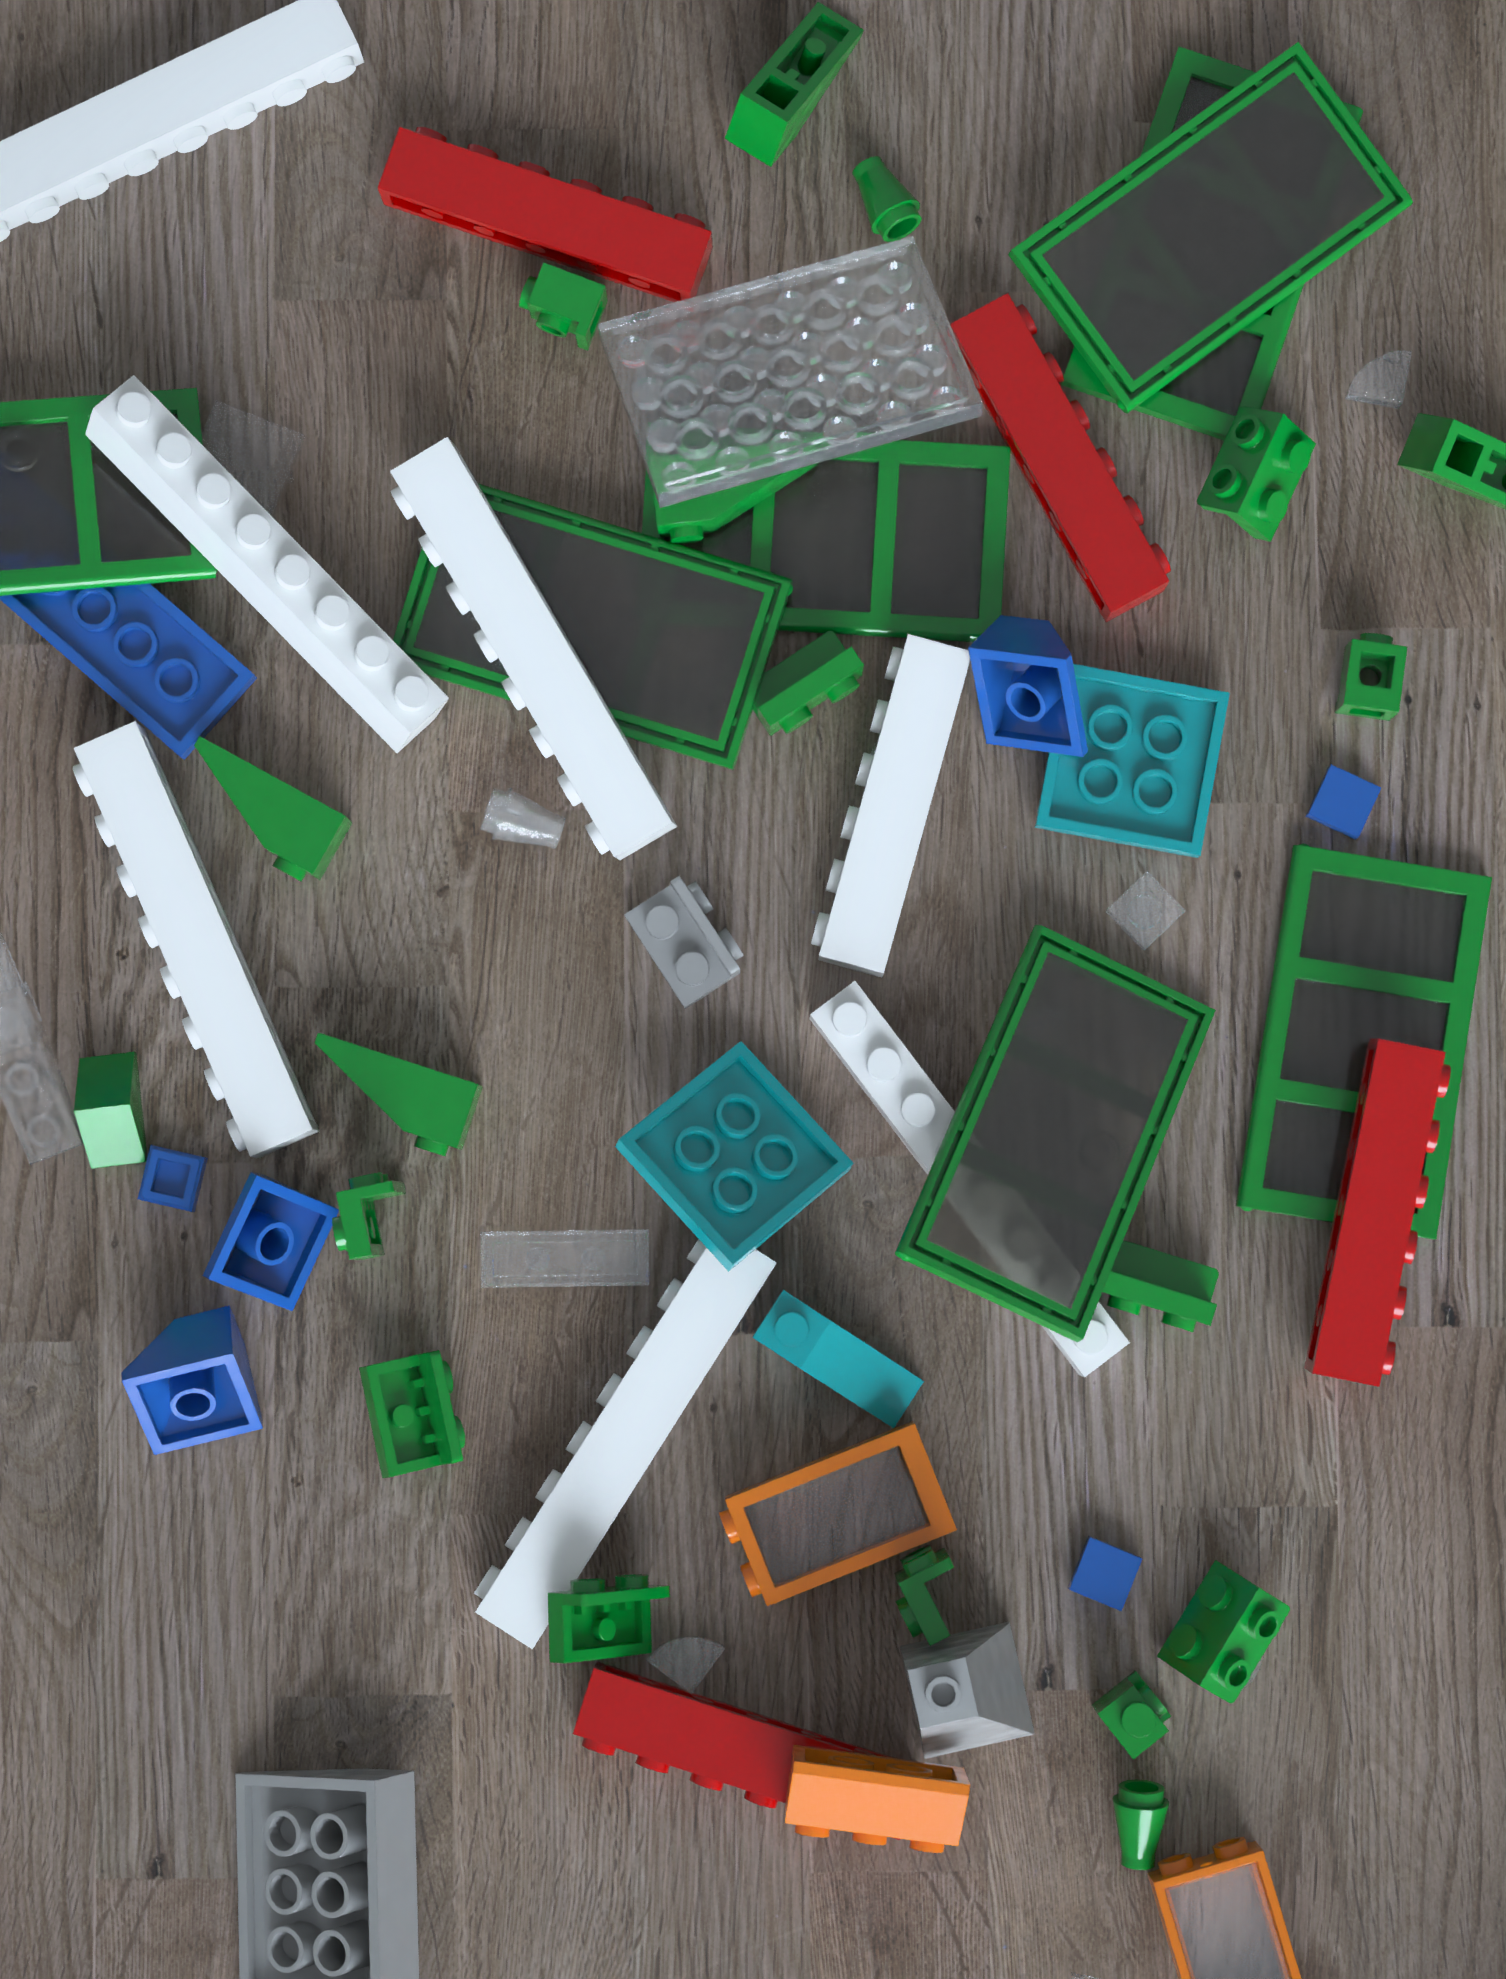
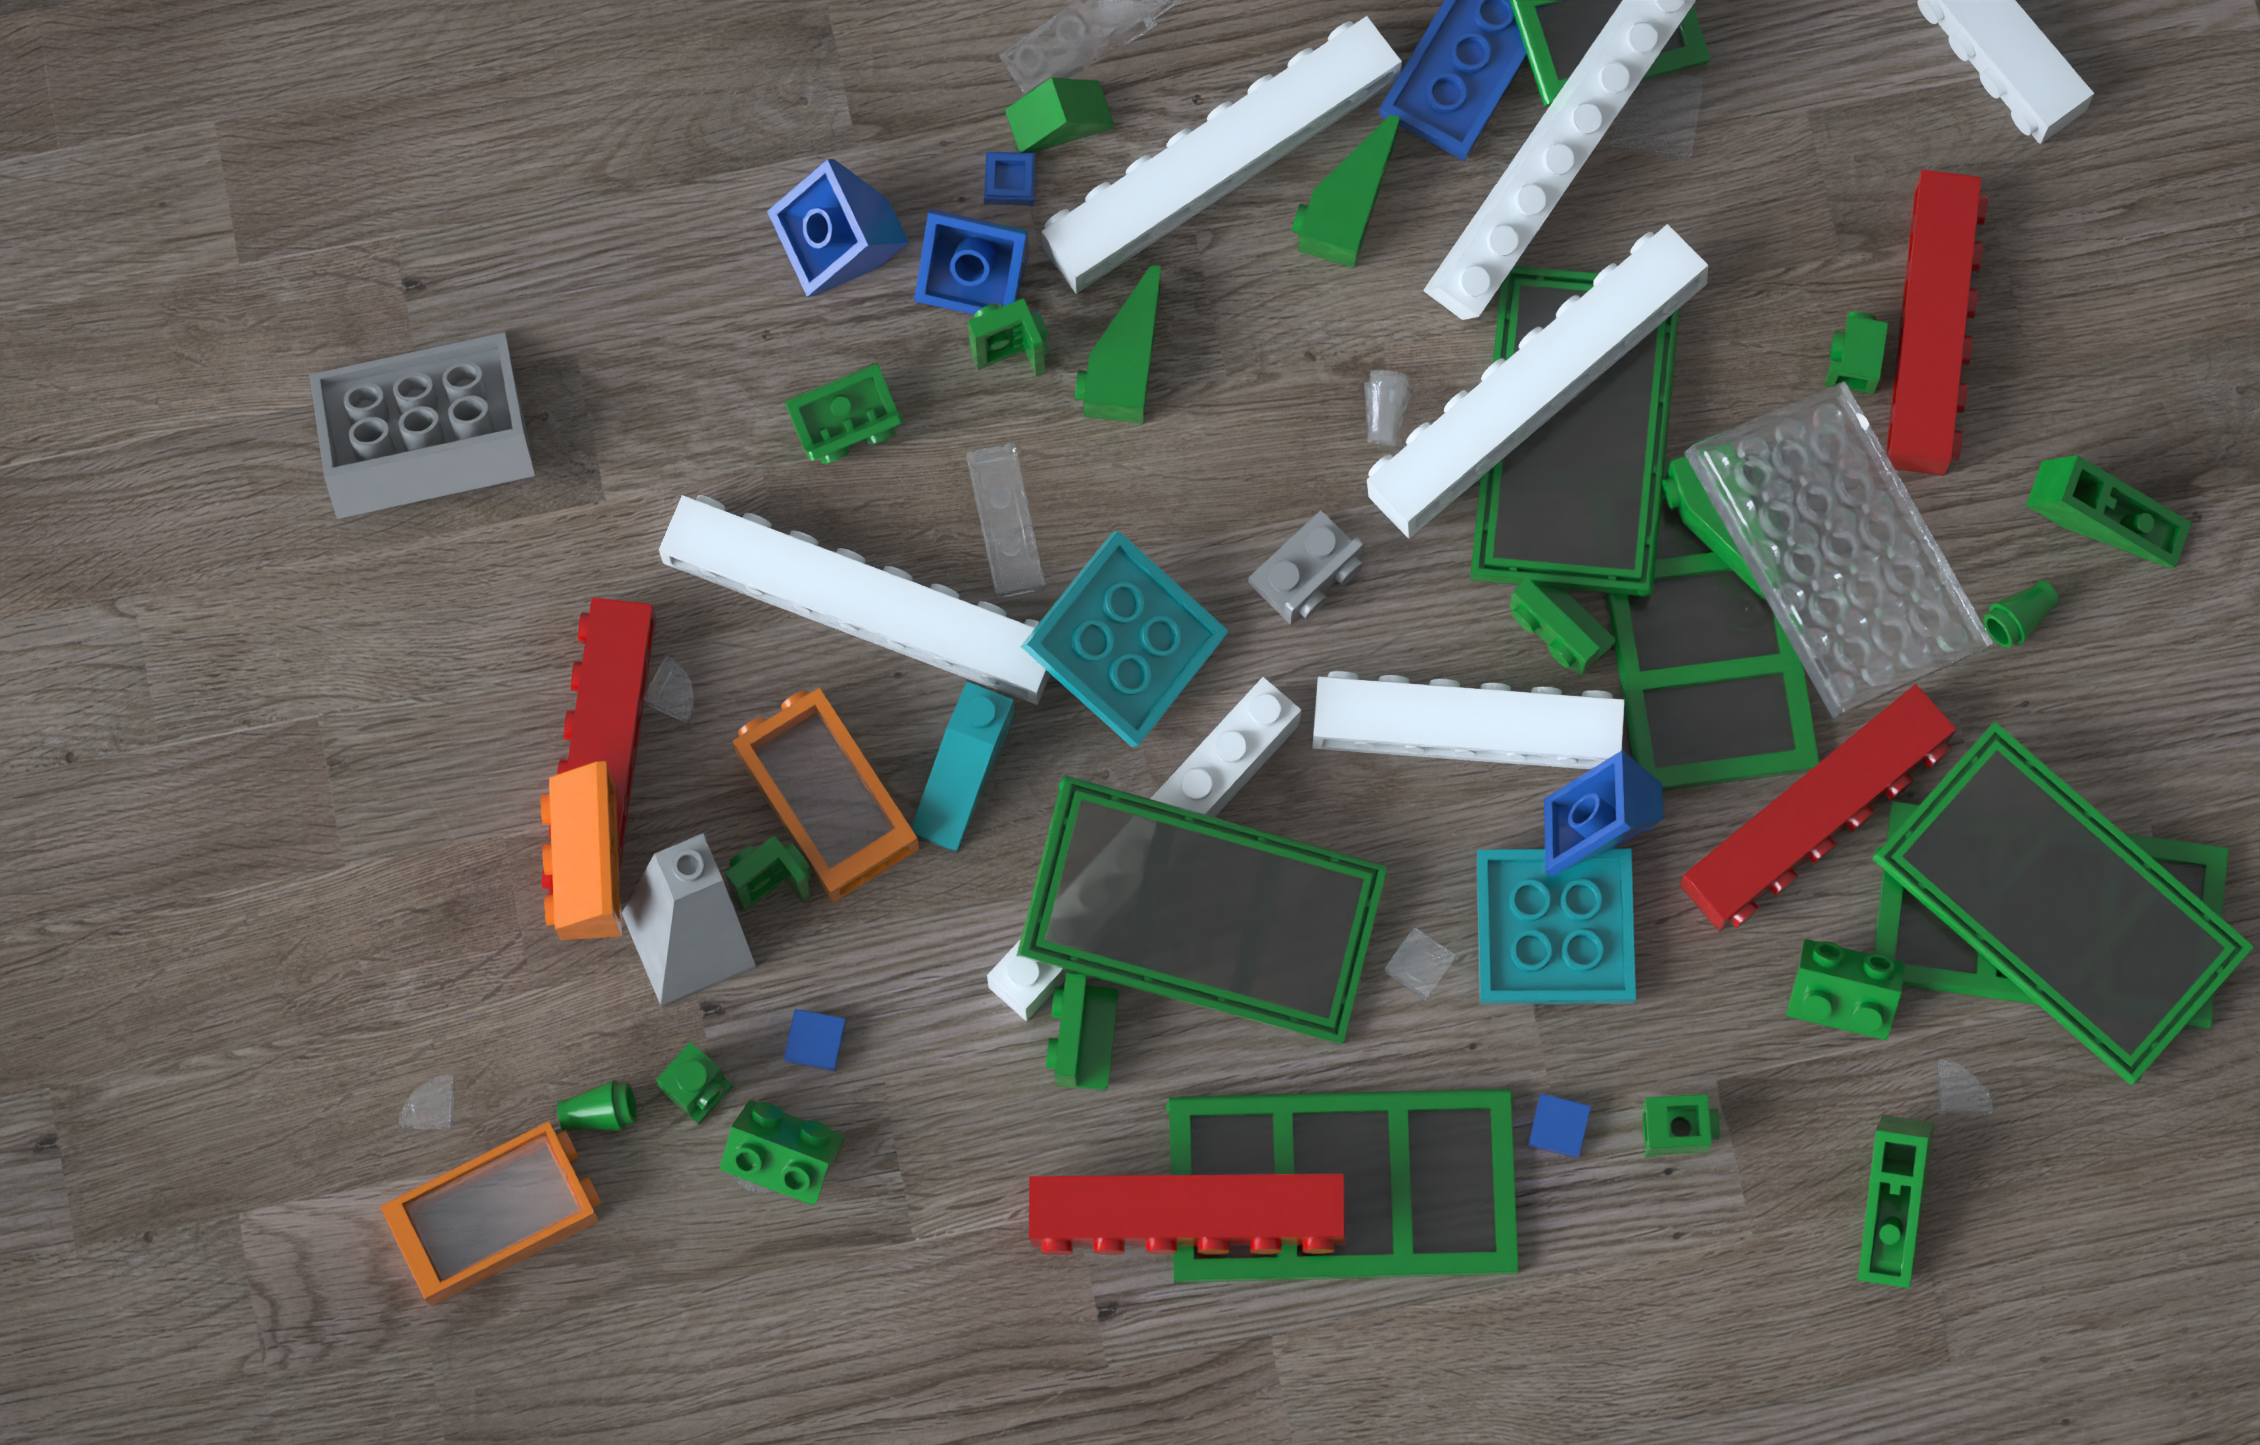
camera: 75 degrees right, 10 degrees down
(602, 1620) = (693, 606): green bracket -> none

